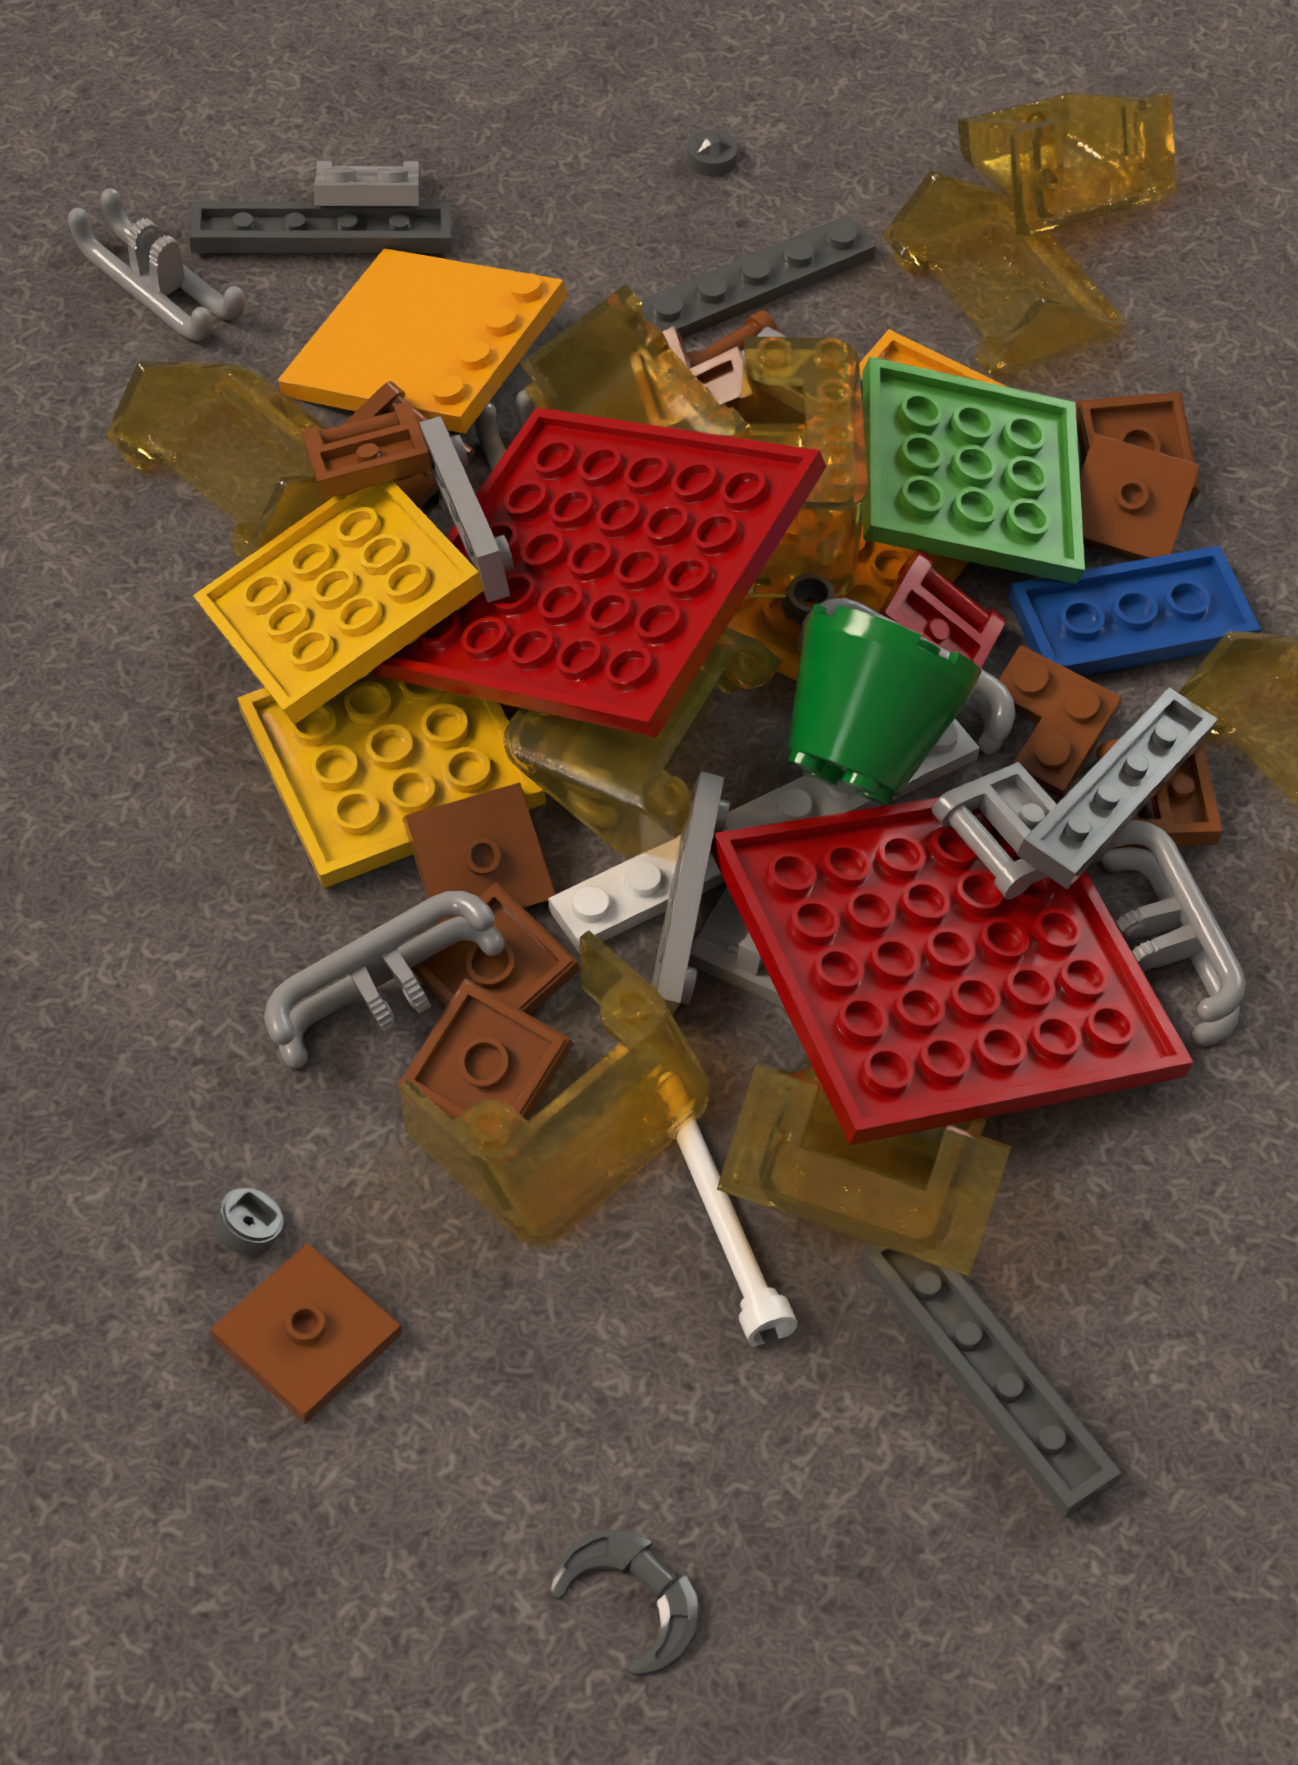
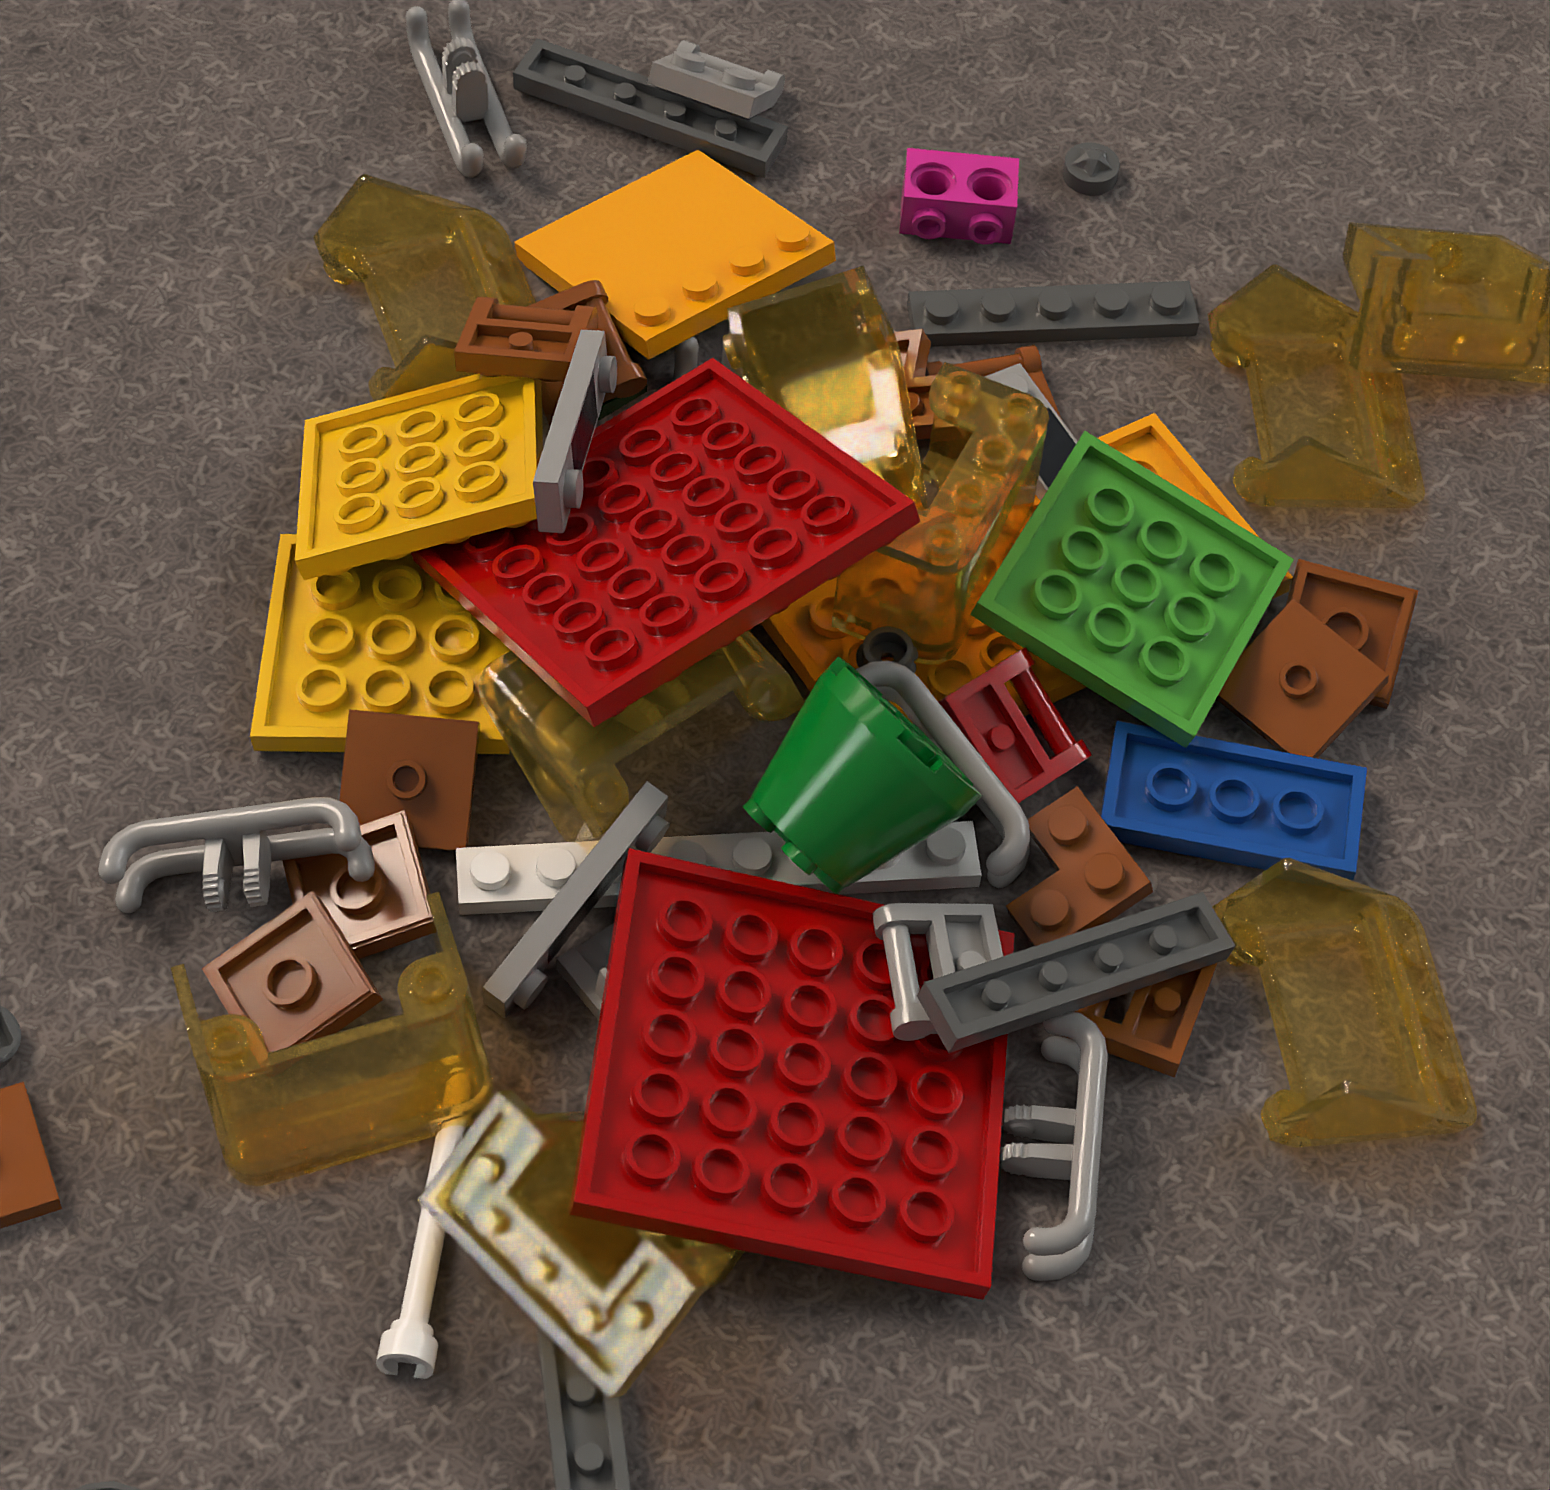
camera: 25 degrees right, 0 degrees up
(625, 210) = (959, 196): none -> dark pink brick

